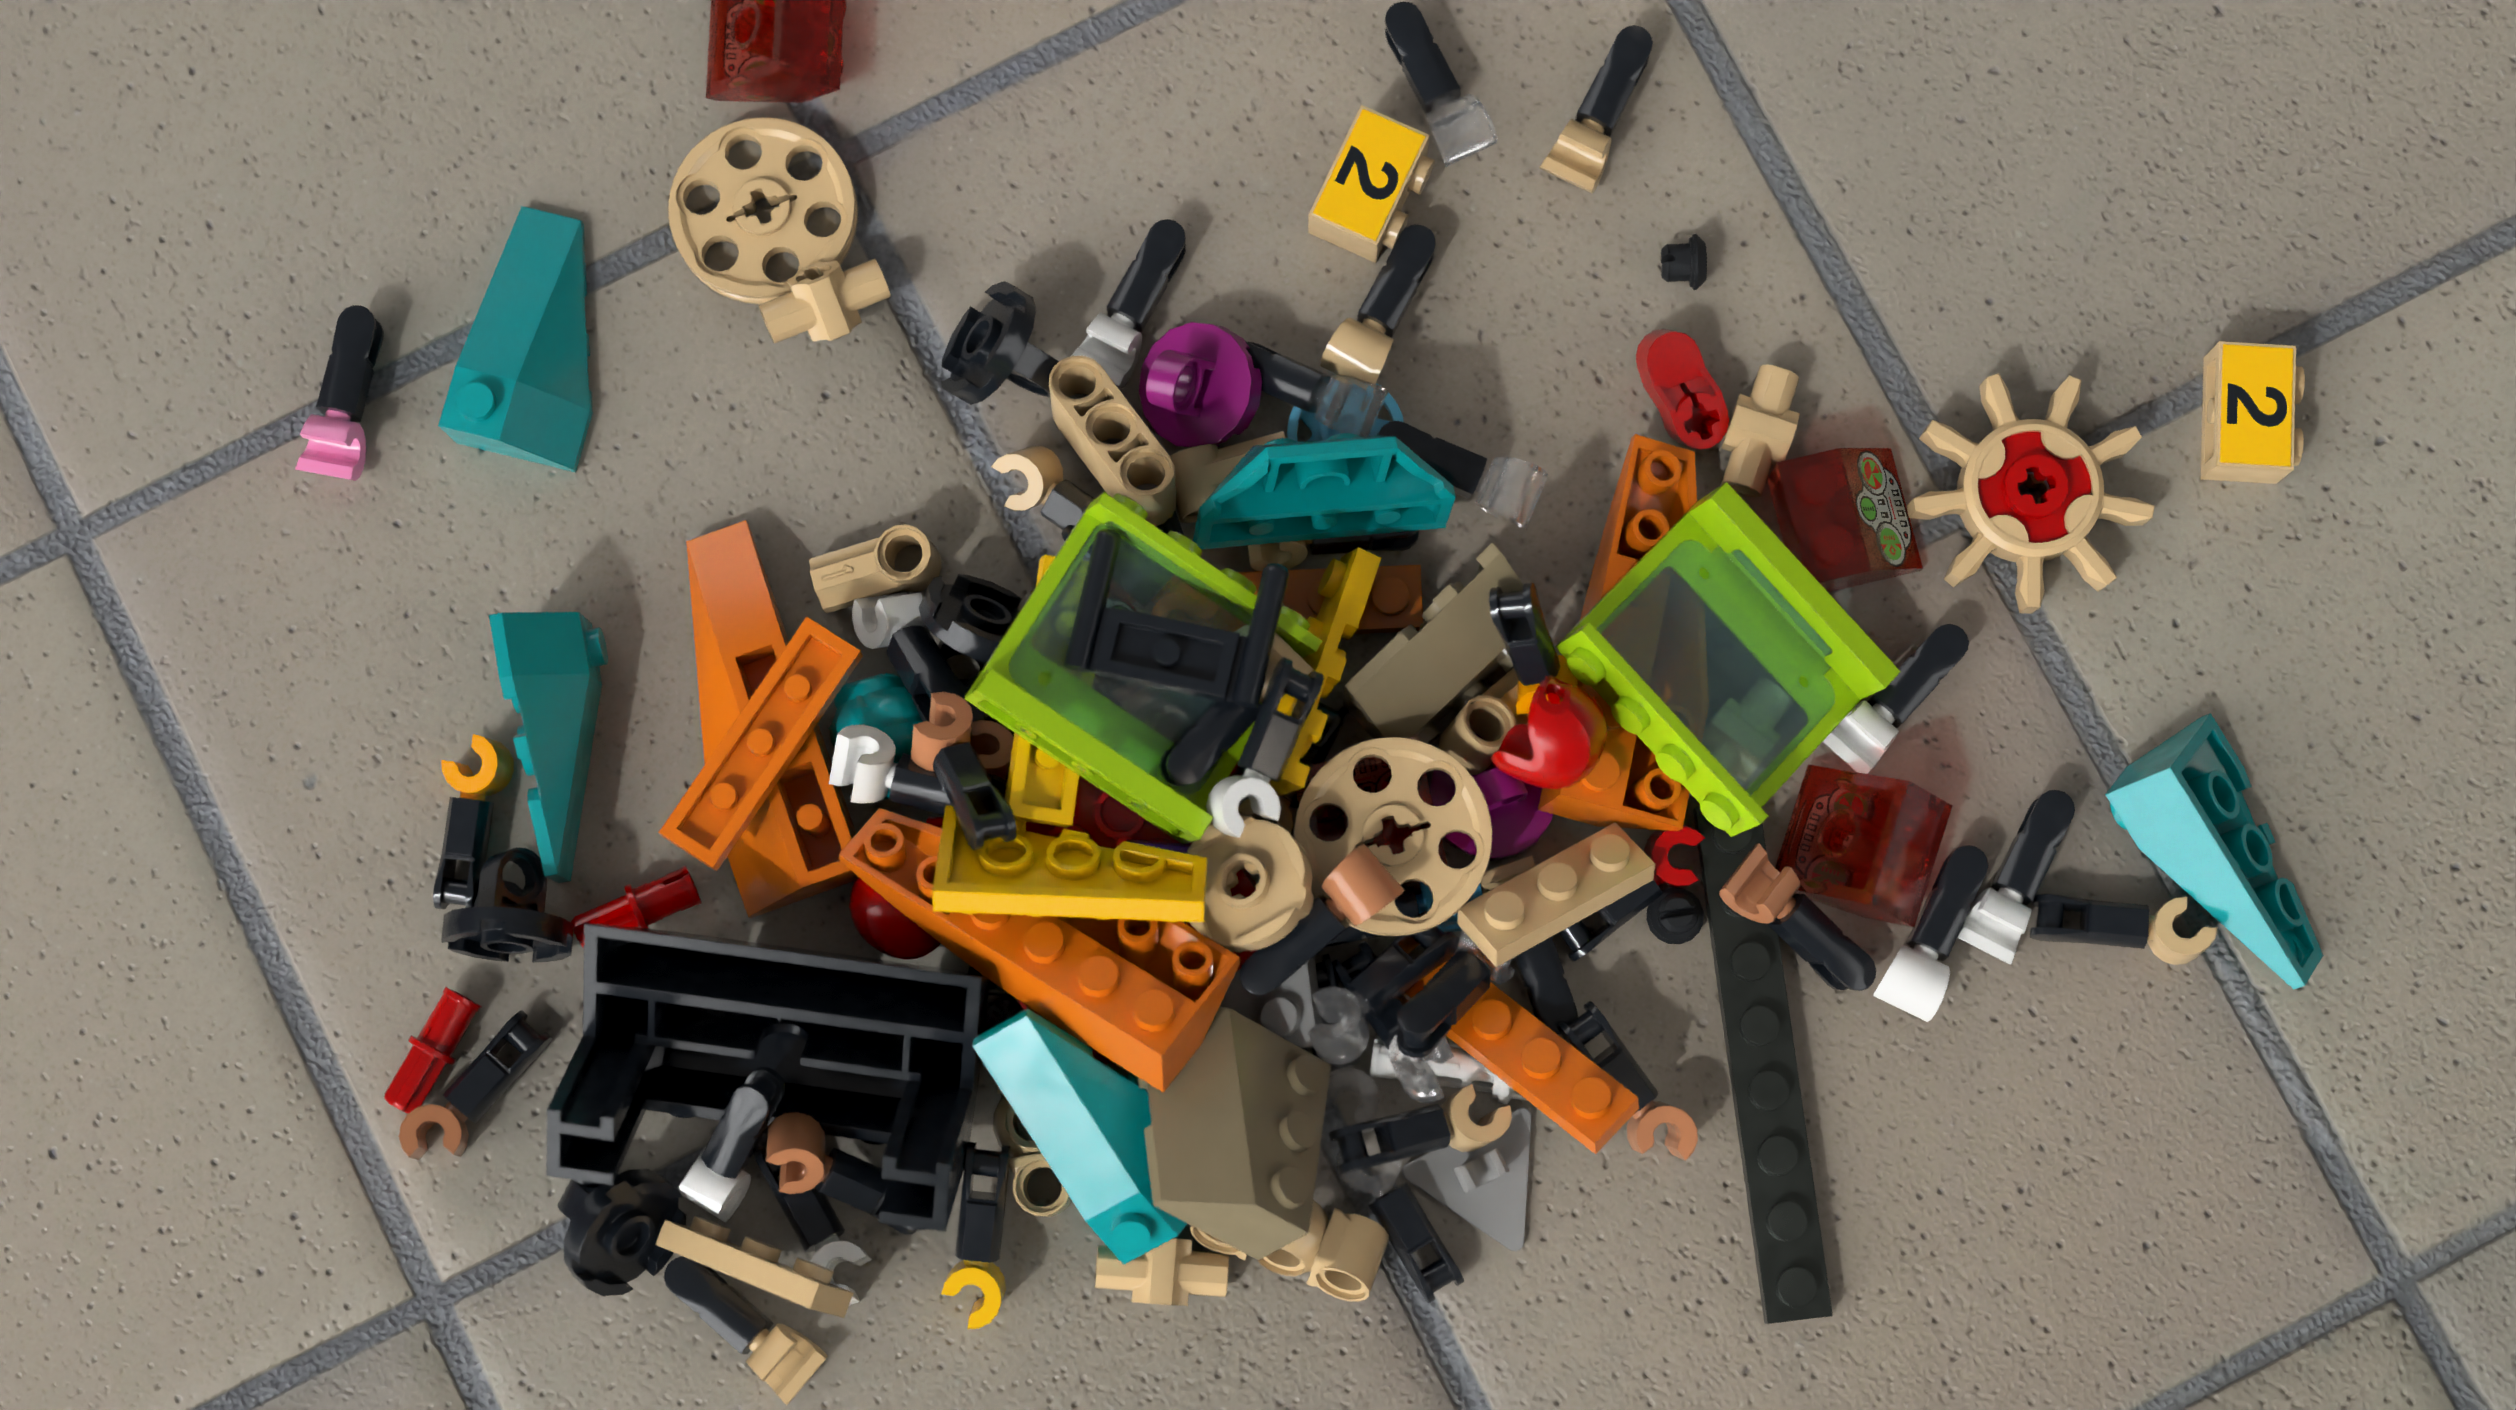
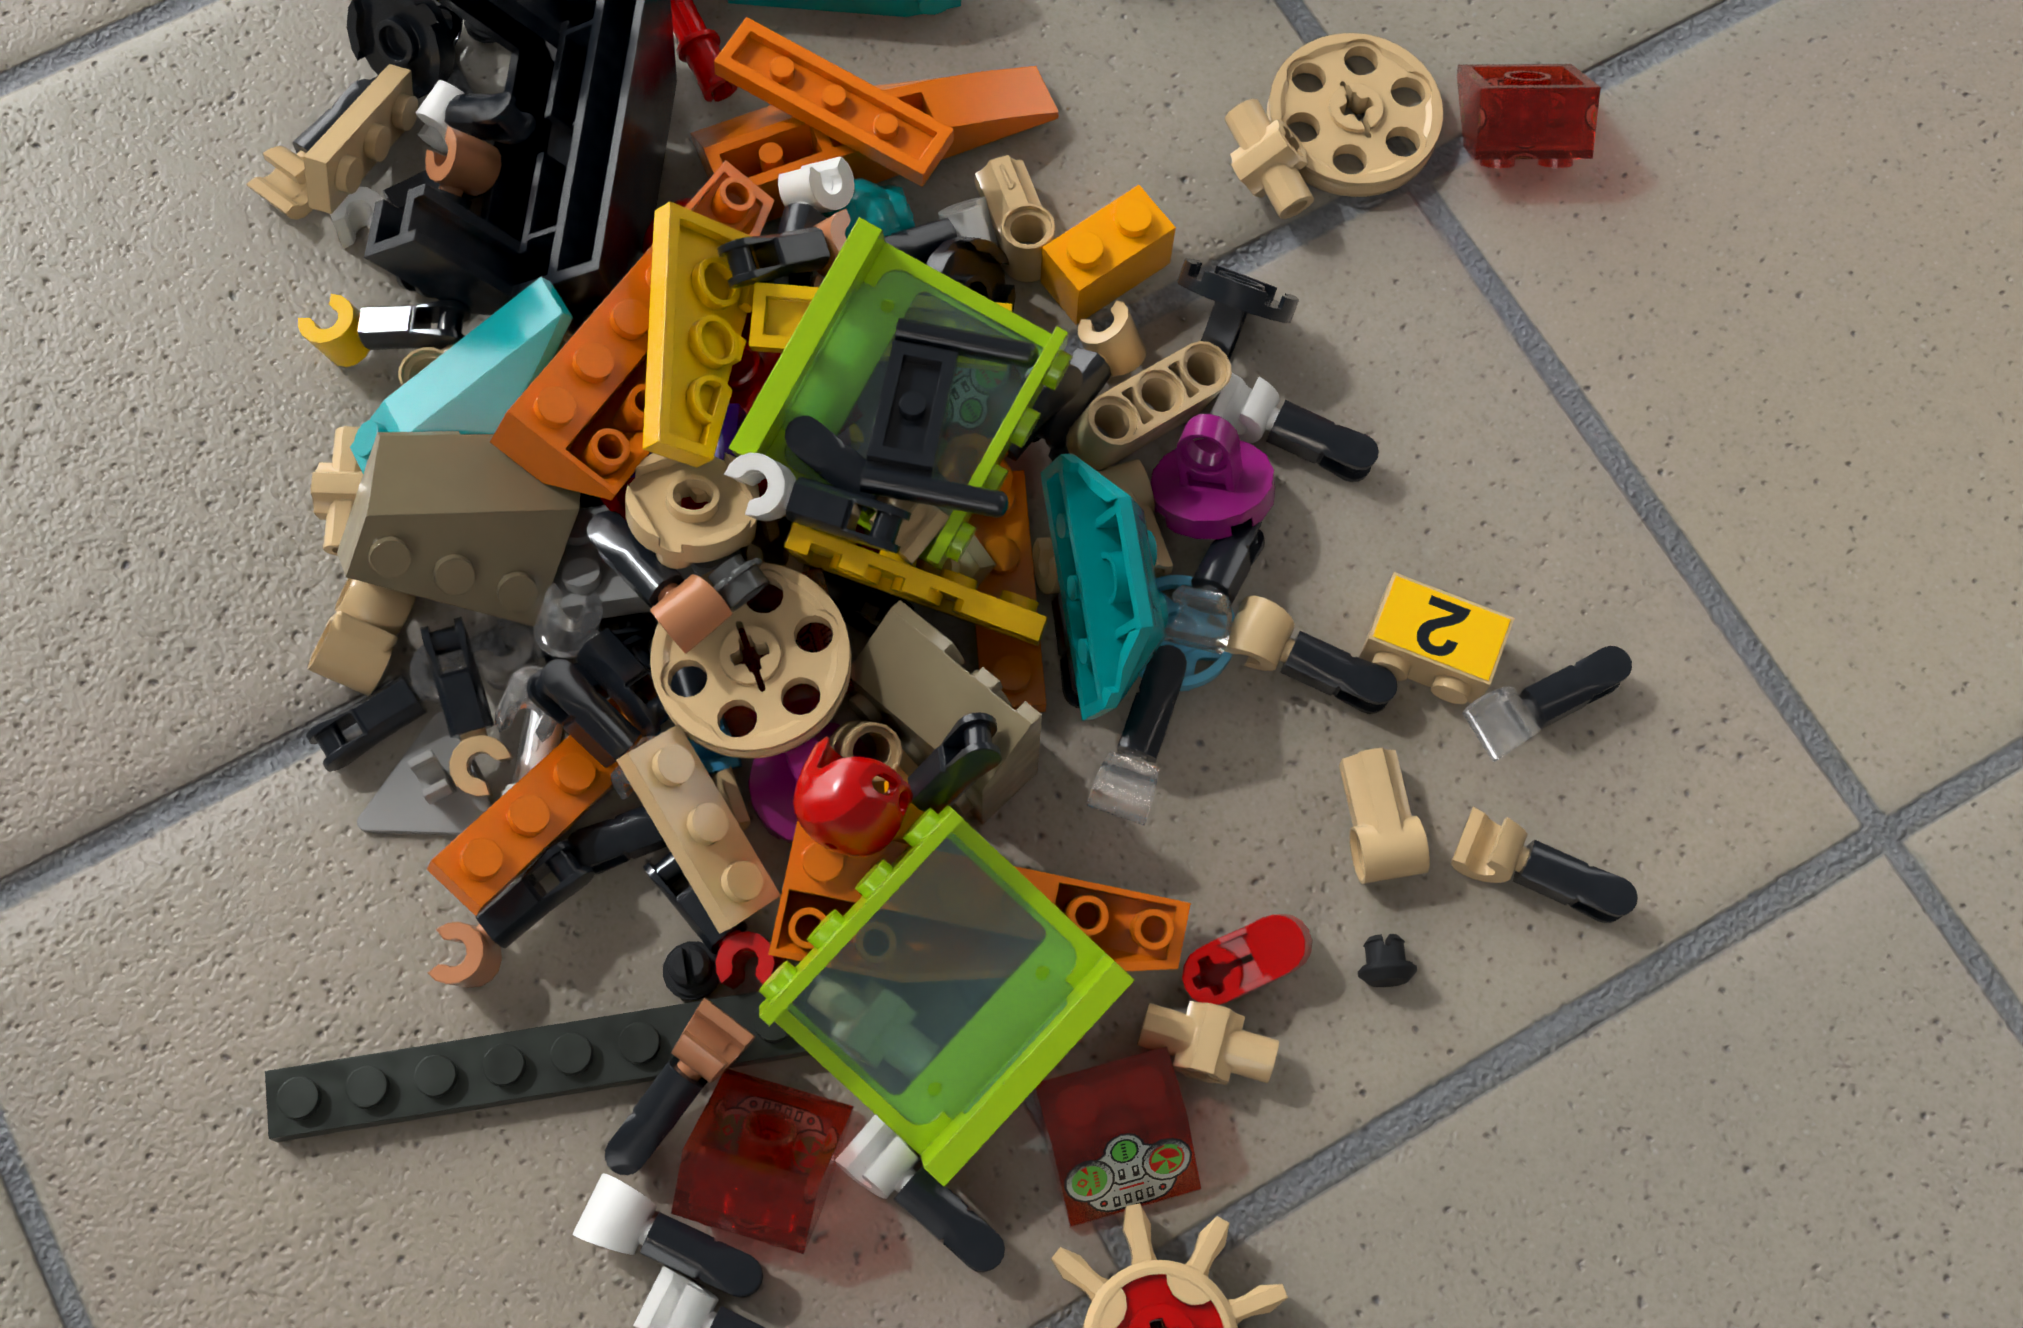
camera: 80 degrees right, 10 degrees down
(929, 475) = (1107, 254): none -> light orange brick
(1327, 839) = (738, 580): none -> dark grey plate
(1564, 250) = (1384, 834): none -> tan piece

